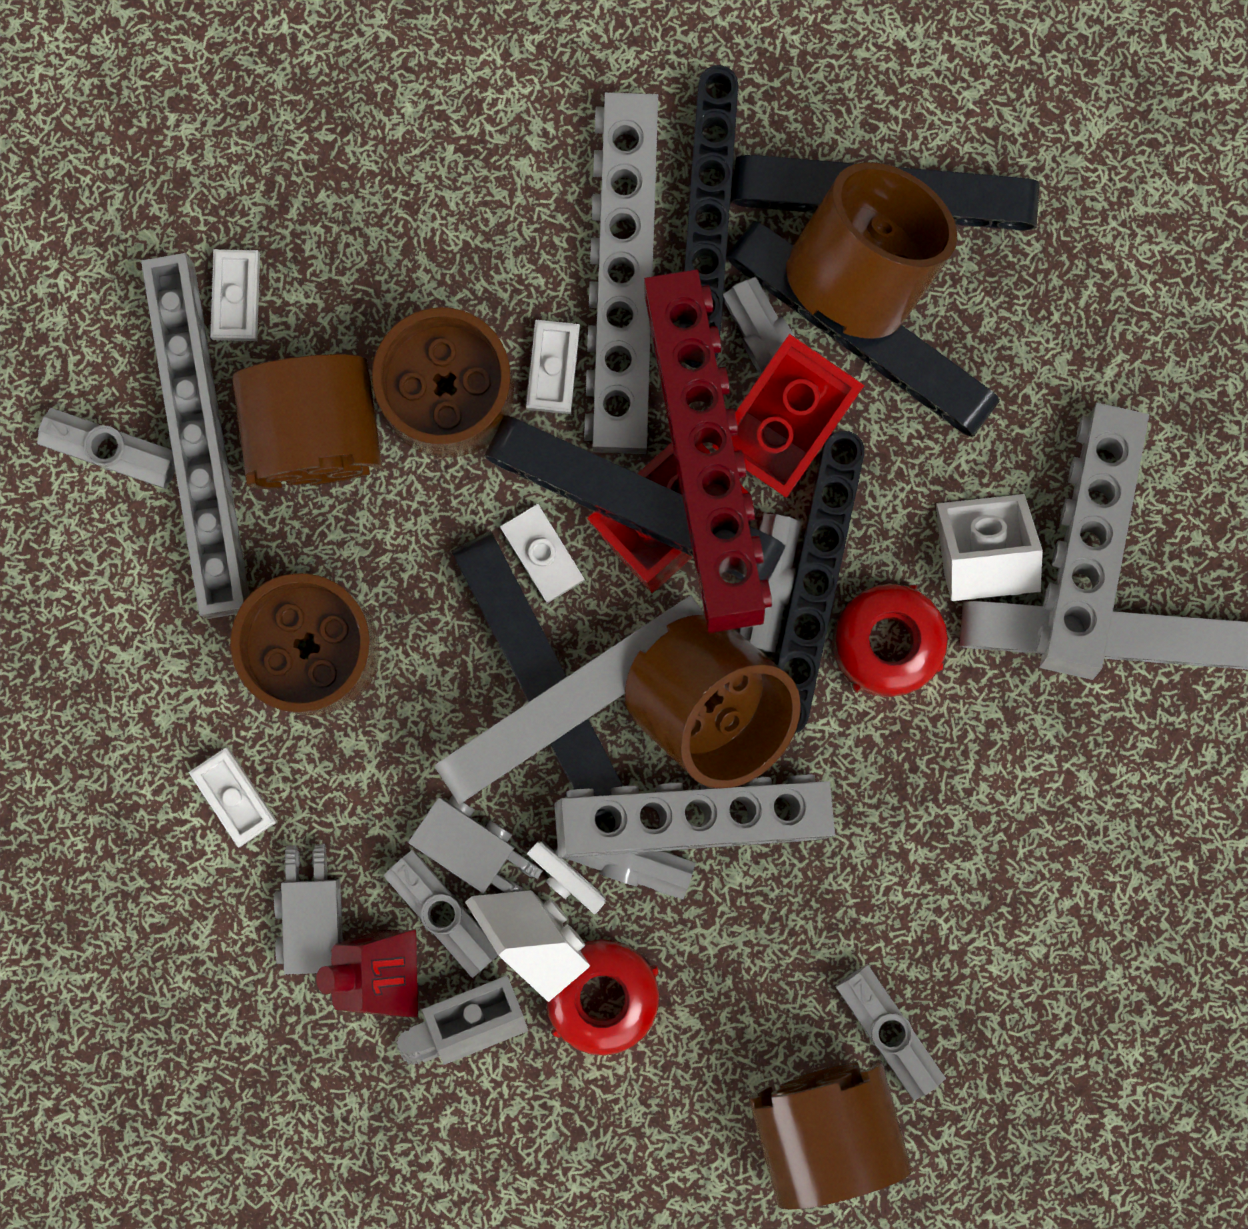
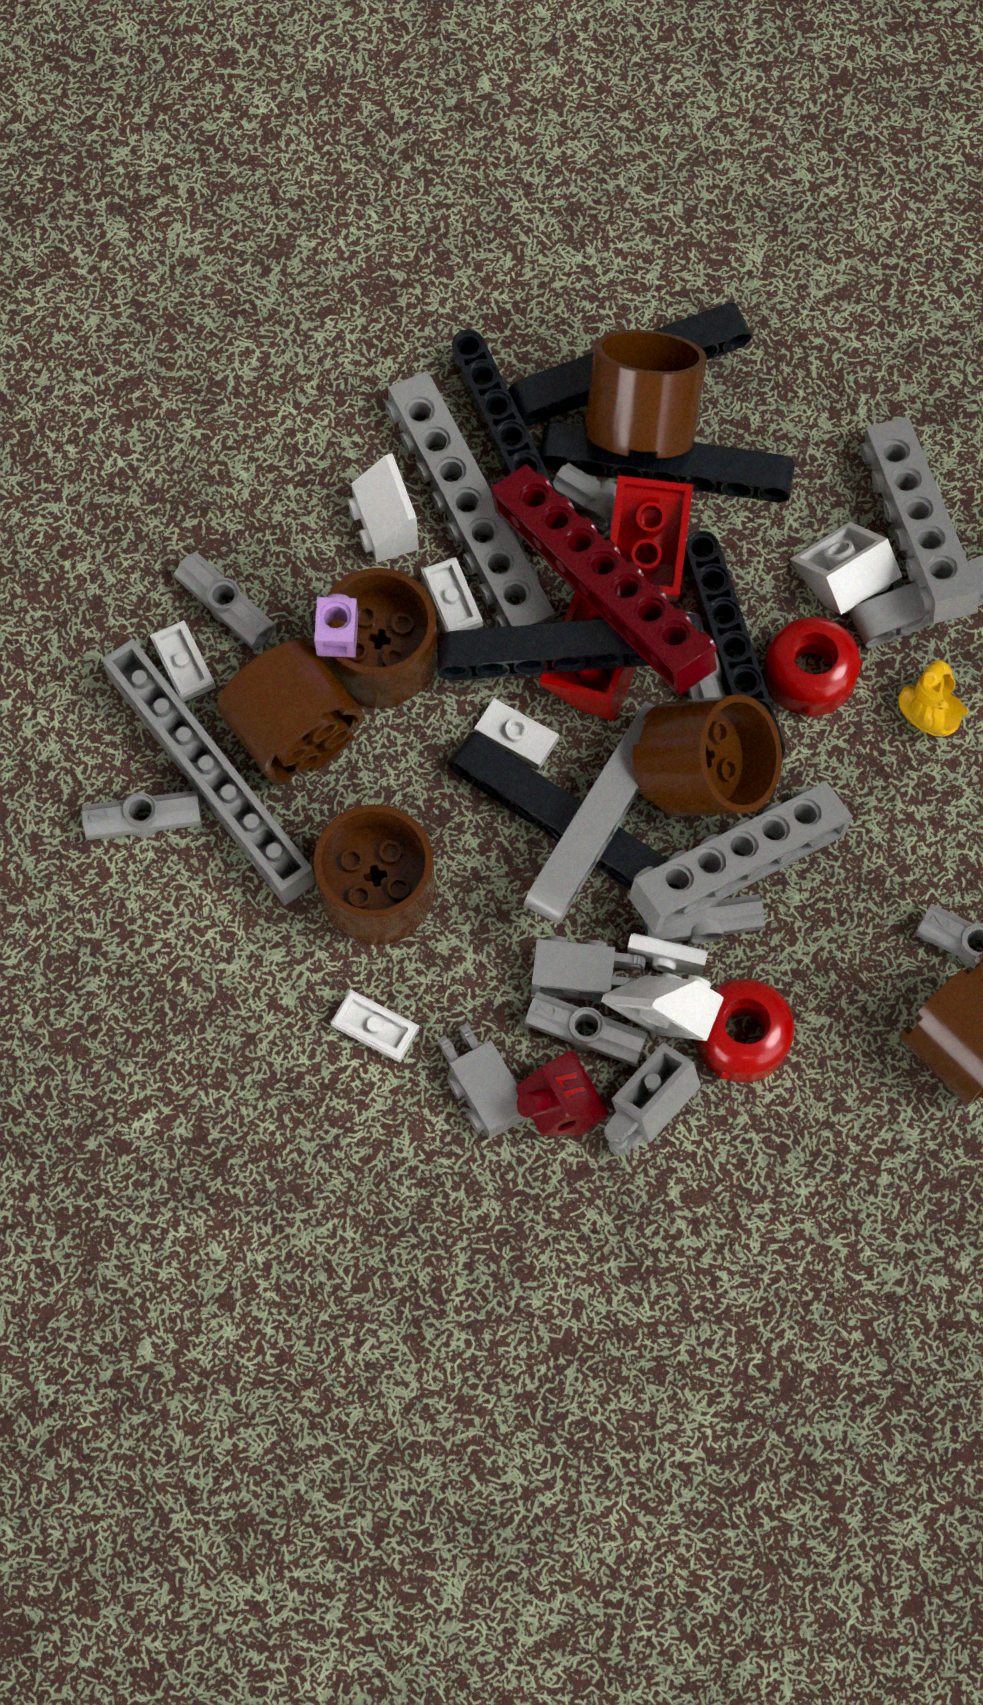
camera: 25 degrees left, 15 degrees down
(304, 224) = (210, 586): none -> light grey piece
(388, 385) = (336, 641): none -> lavender brick
(528, 235) = (384, 511): none -> white slope
(993, 748) = (930, 702): none -> yellow hair

